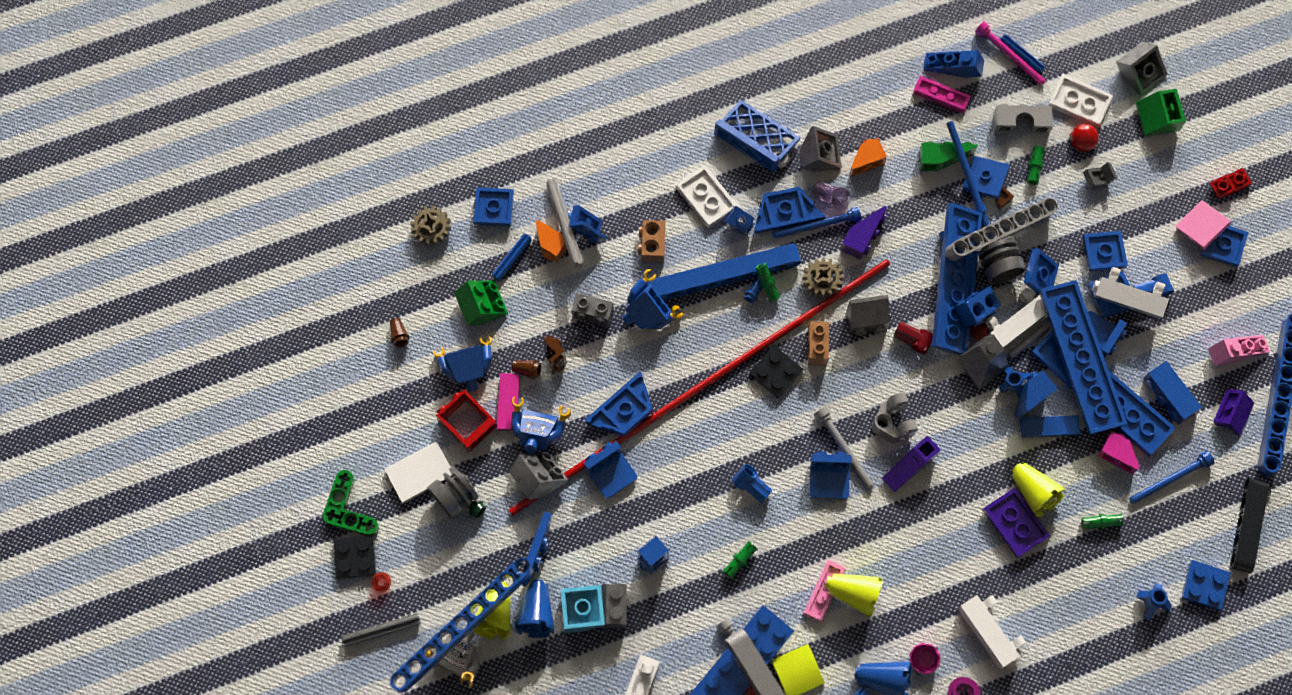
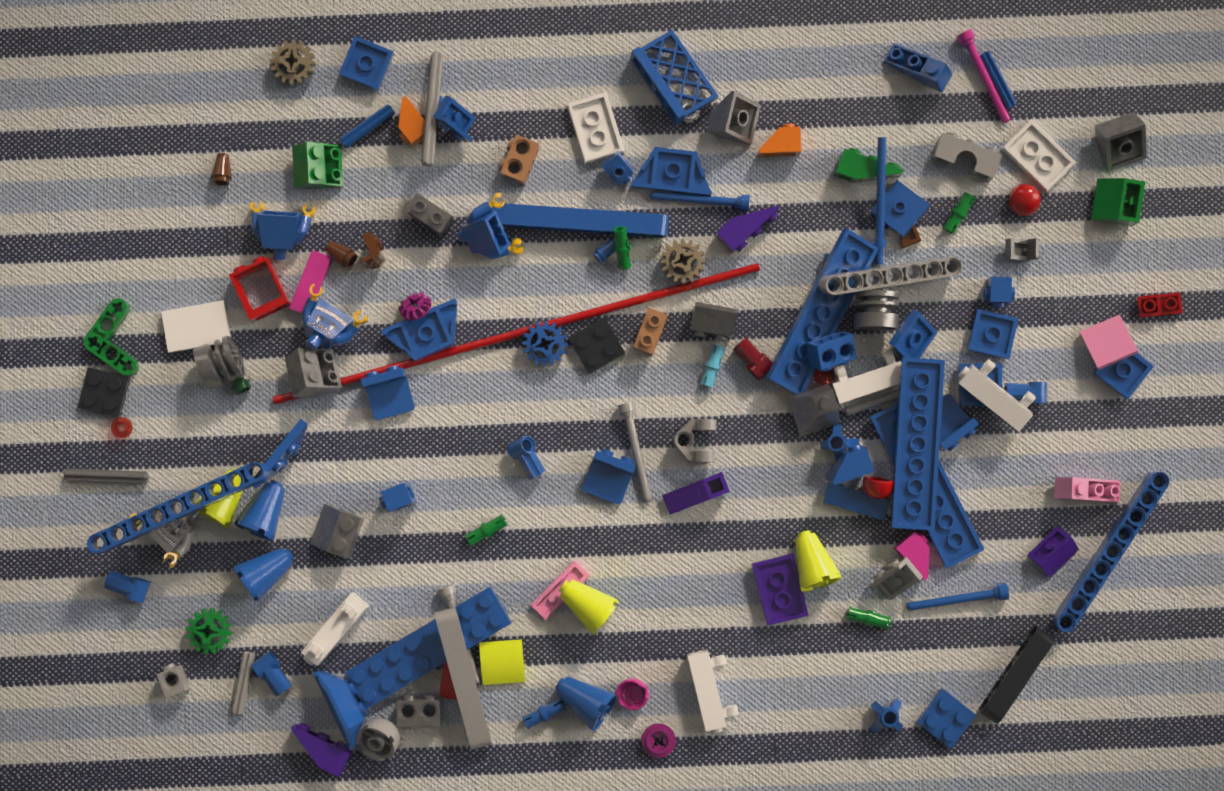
camera: 20 degrees right, 15 degrees up
(554, 664) = (264, 571): none -> blue cone
(582, 608) = (308, 526): medium azure slope -> none
(603, 393) = (410, 312): none -> magenta gear
(736, 389) = (541, 334): none -> blue gear
(830, 193) = (725, 170): clear purple piece -> none
(882, 355) = (713, 366): none -> medium azure pin
(941, 94) = (891, 97): dark pink tile -> none
(1064, 406) = (877, 487): none -> red hair
(1095, 215) = (998, 291): none -> blue brick
(1113, 476) = (897, 578): none -> light grey bracket
(1172, 393) = (996, 511): blue brick -> none

